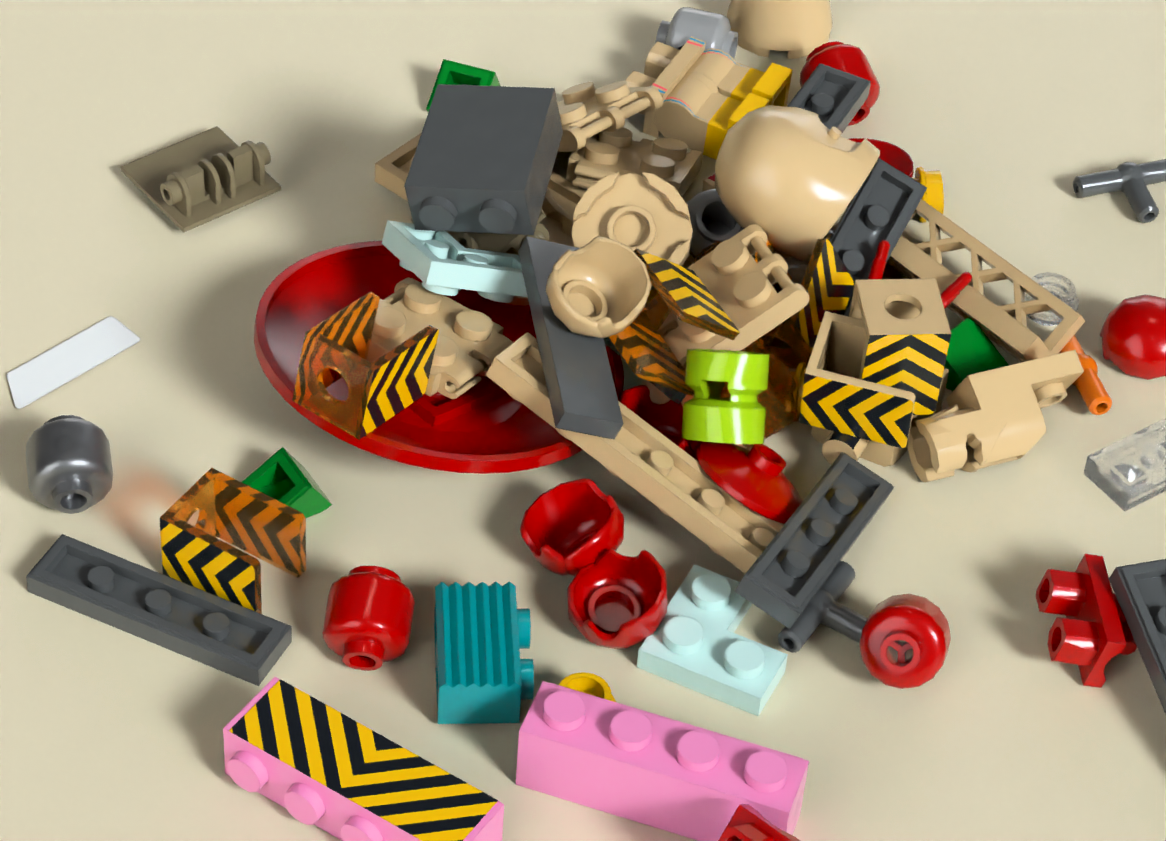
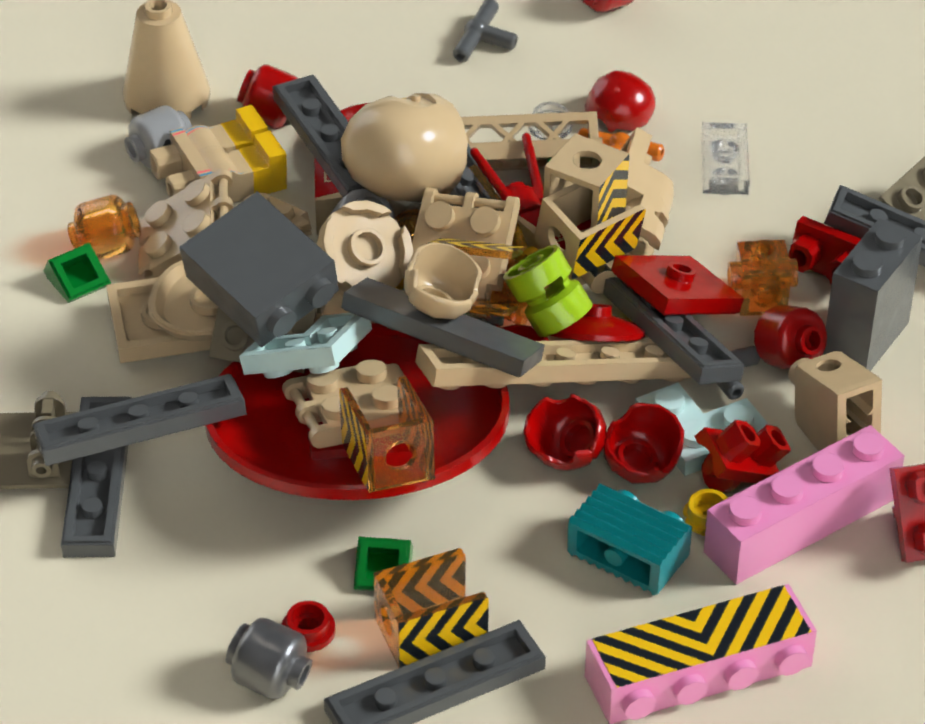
camera: 50 degrees left, 0 degrees up
(69, 360) = (135, 616): white sticker -> none
(146, 477) = (313, 622): none -> red plate
(216, 243) = (94, 497): none -> dark grey tile
(267, 211) = (139, 419): none -> dark grey tile
(368, 617) = (553, 574): red head -> none
(531, 62) = (106, 225): none -> clear orange head
(670, 678) = (740, 454): none -> red hips
(840, 704) = (834, 397): none -> tan torso
(889, 510) = (677, 284): none -> red plate
(981, 575) = (759, 268): none -> clear orange brick
(1019, 669) = (873, 293): none -> dark grey brick

